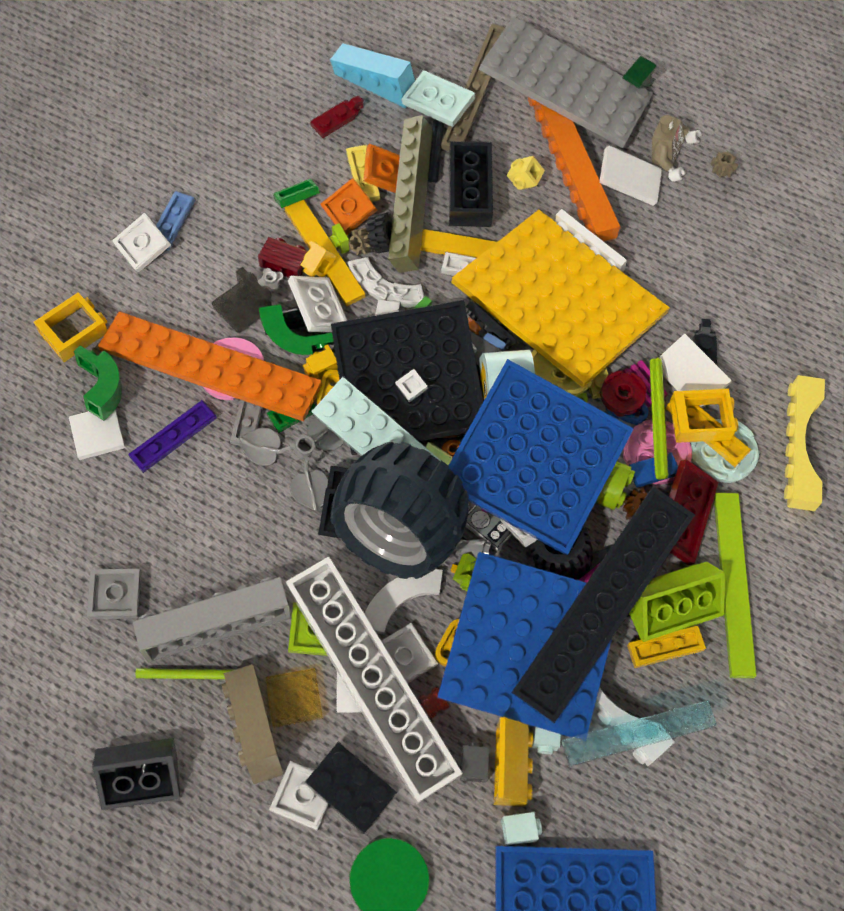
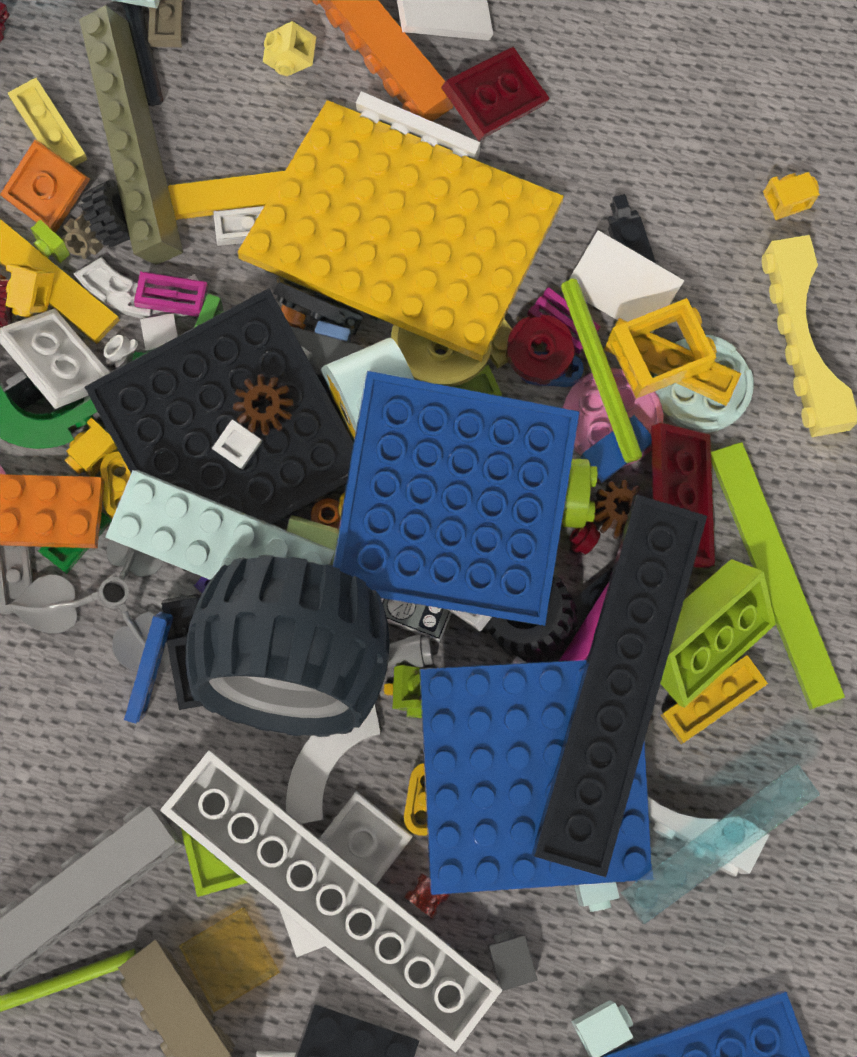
camera: 25 degrees left, 10 degrees up
(309, 500) = (148, 667): none -> blue tile
(359, 311) = (119, 351): none -> white plate
(381, 168) = (72, 108): orange tile -> none
(400, 293) = (169, 306): none -> dark pink tile
(442, 371) = (254, 396): none -> reddish brown gear
(470, 184) = (214, 92): black brick -> none
(512, 763) = (563, 945): yellow slope -> none
(613, 517) = (584, 538): none -> dark red plate
(646, 235) = (495, 93): none -> dark red plate
(821, 353) = (791, 194): none -> yellow brick

